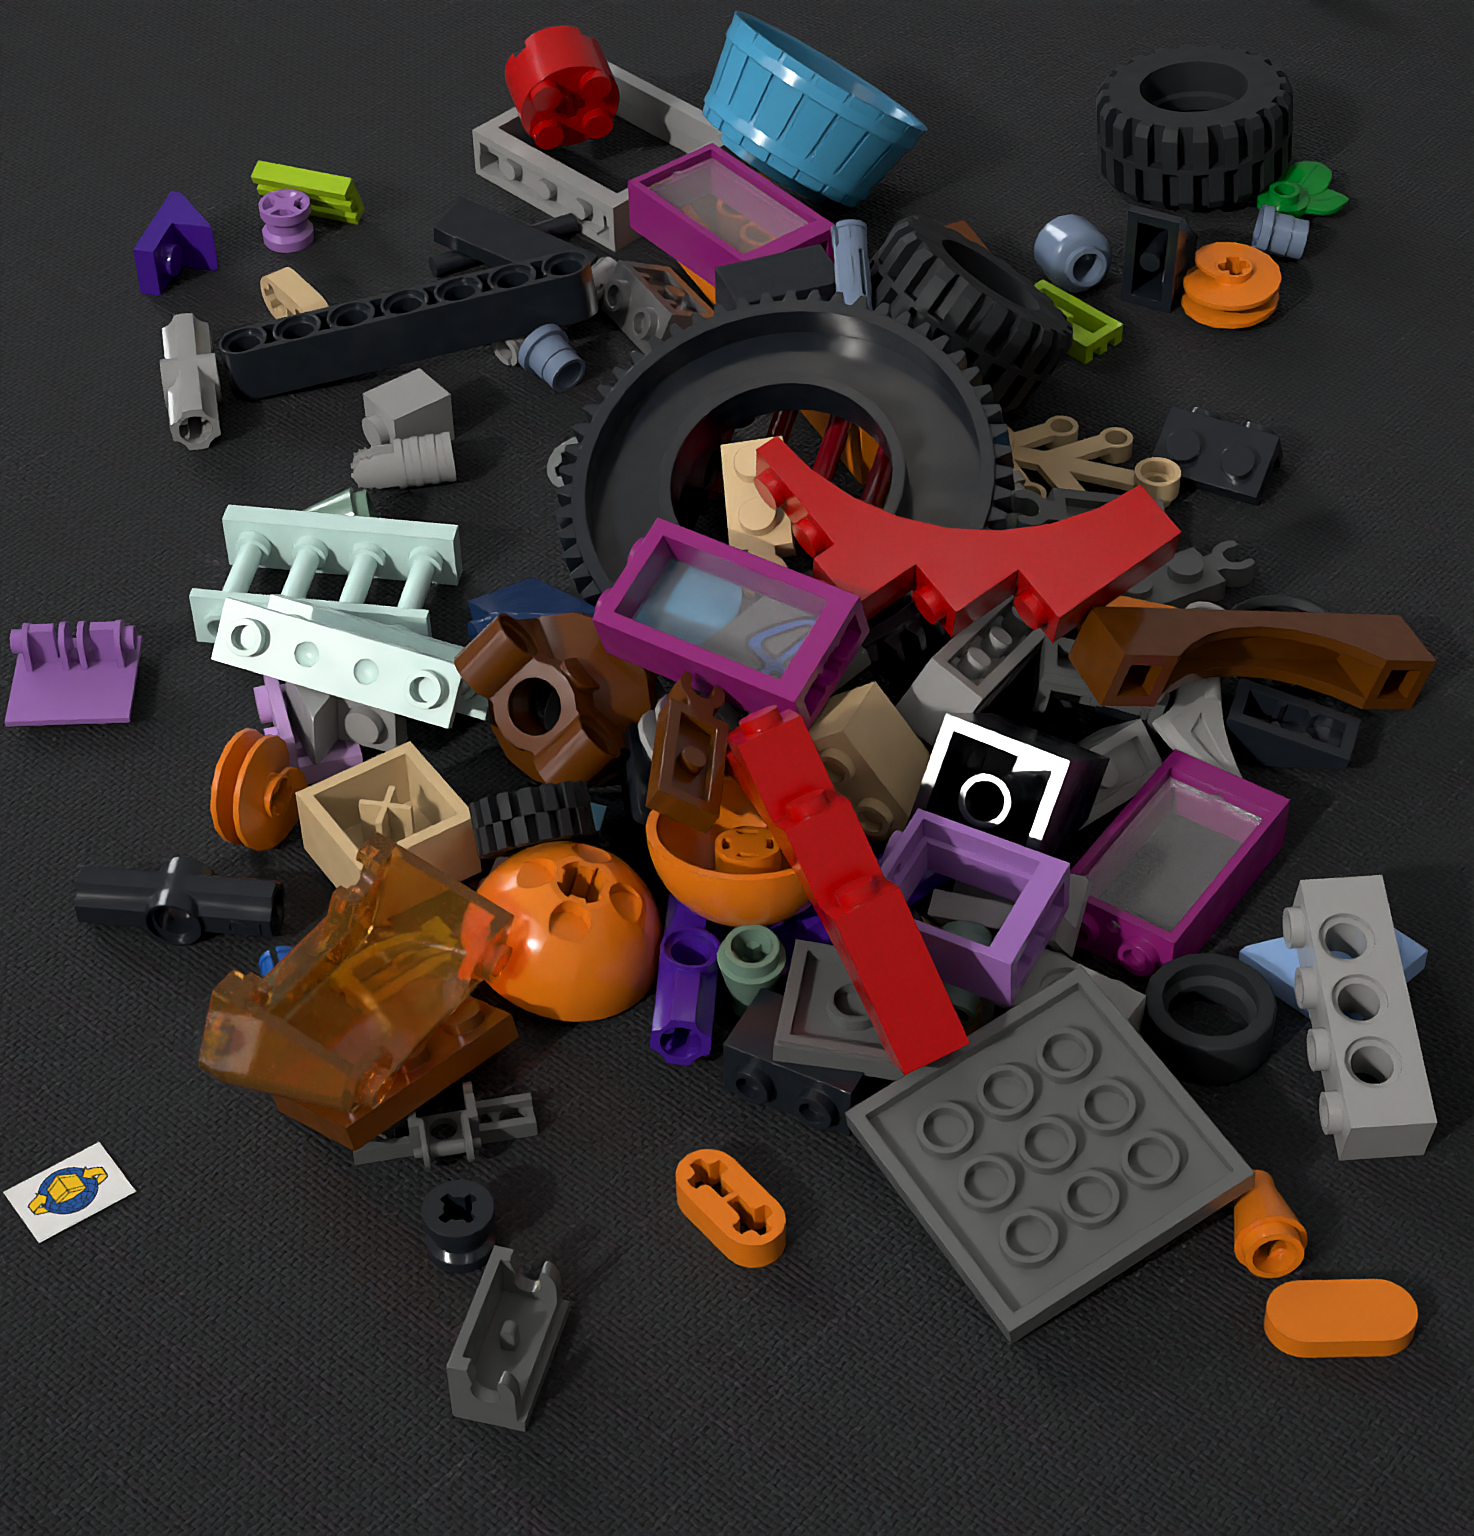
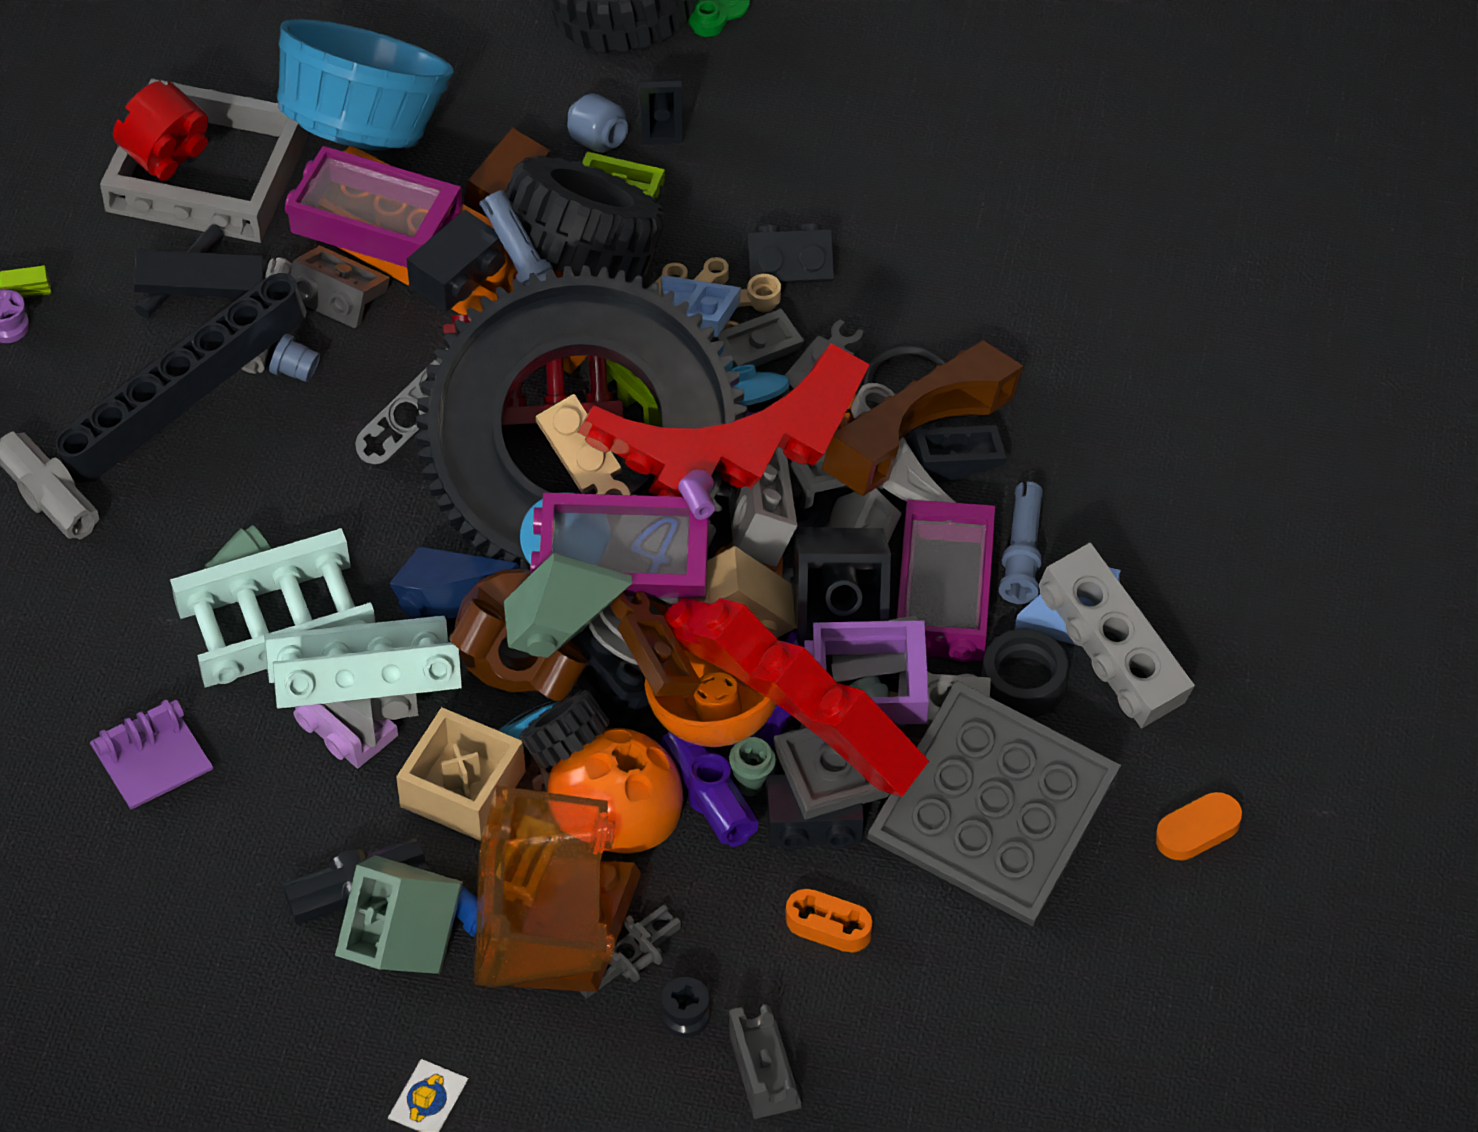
camera: 30 degrees left, 10 degrees up
(171, 945) = (398, 917): none -> sand green slope
(255, 791) = (354, 786): orange piece -> none
(289, 294) = (71, 387): tan beam -> none
(406, 409) = (228, 450): light grey brick -> none
(406, 463) = (253, 488): light grey hinge -> none
(601, 655) = (559, 603): none -> sand green slope
(843, 579) = (696, 491): none -> medium lavender arm
(1060, 459) = (711, 300): none -> light blue wing
(1231, 286) = (719, 109): orange piece -> none
(1267, 1231) = (1135, 794): orange cone -> none
(1279, 233) = (722, 49): sand blue piece -> none
(1318, 857) = (1022, 556): none -> sand blue pin

